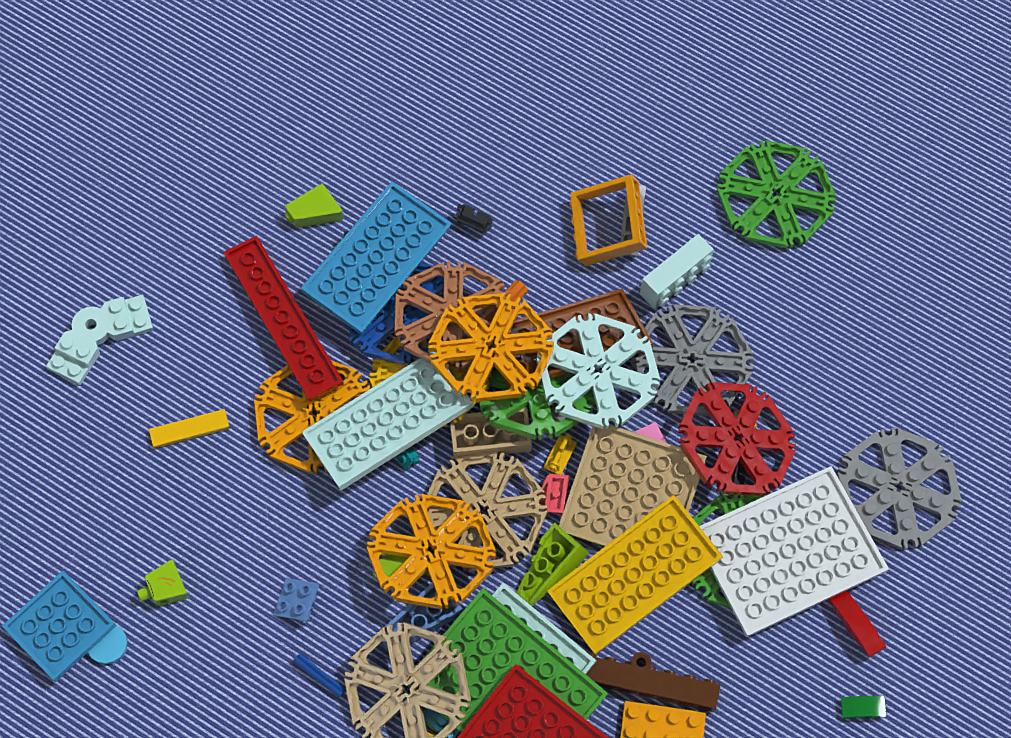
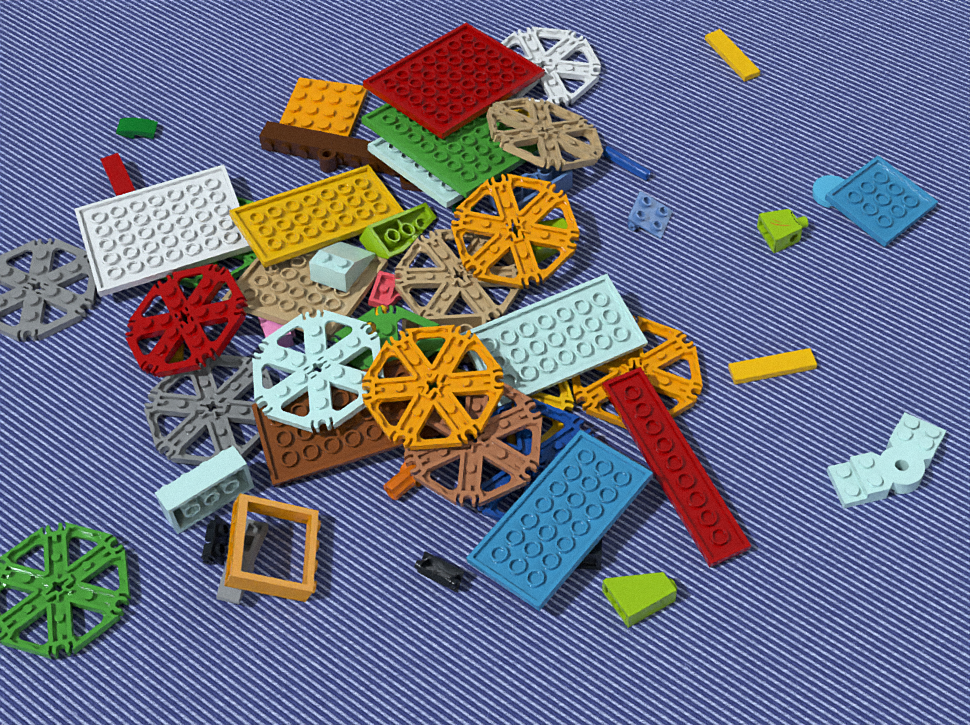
camera: 170 degrees left, 15 degrees down
(599, 510) = (339, 265): none -> light aqua slope
(658, 231) = (217, 534): none -> black hinge

